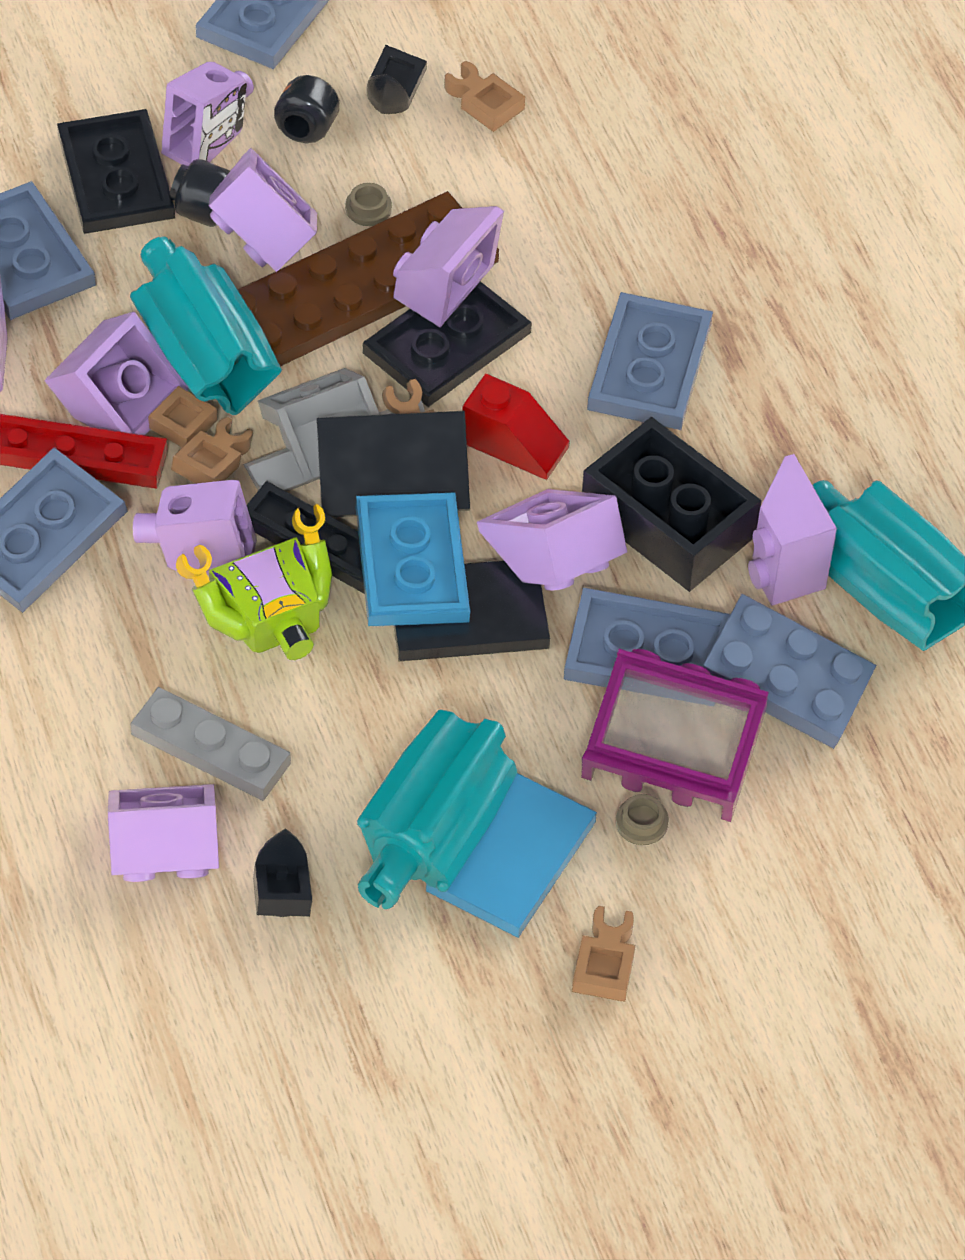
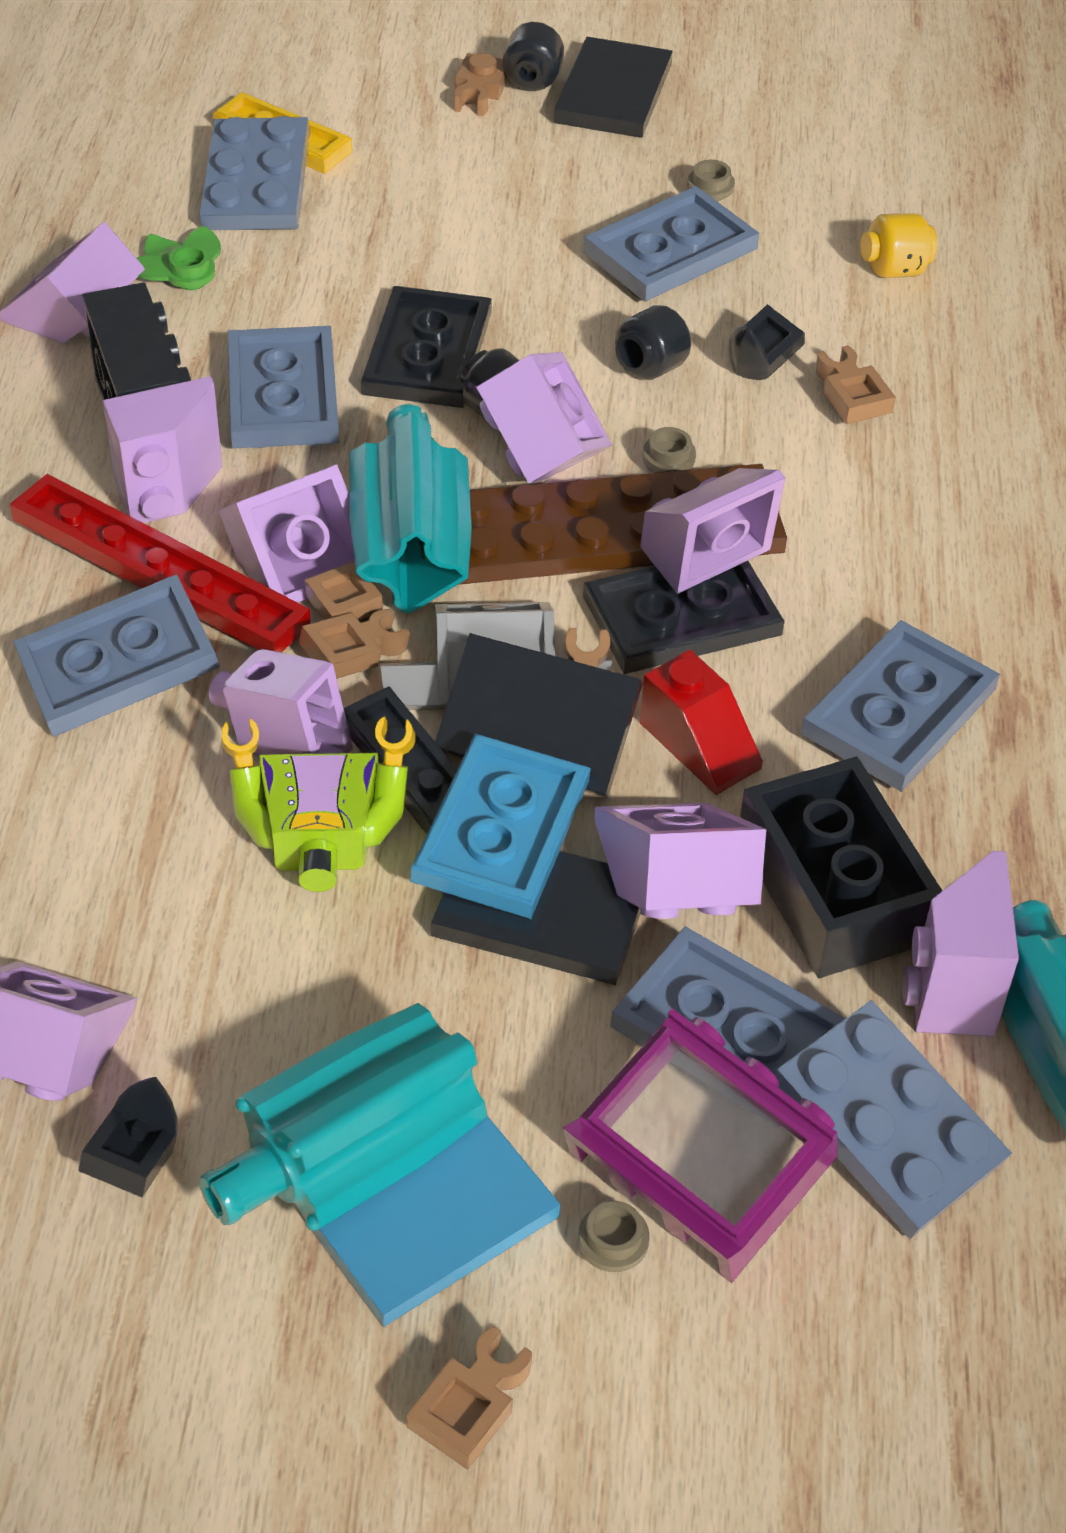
camera: 25 degrees right, 5 degrees down
(203, 112) = (543, 308): lavender torso -> none
(210, 743) = (161, 951): light grey plate -> none

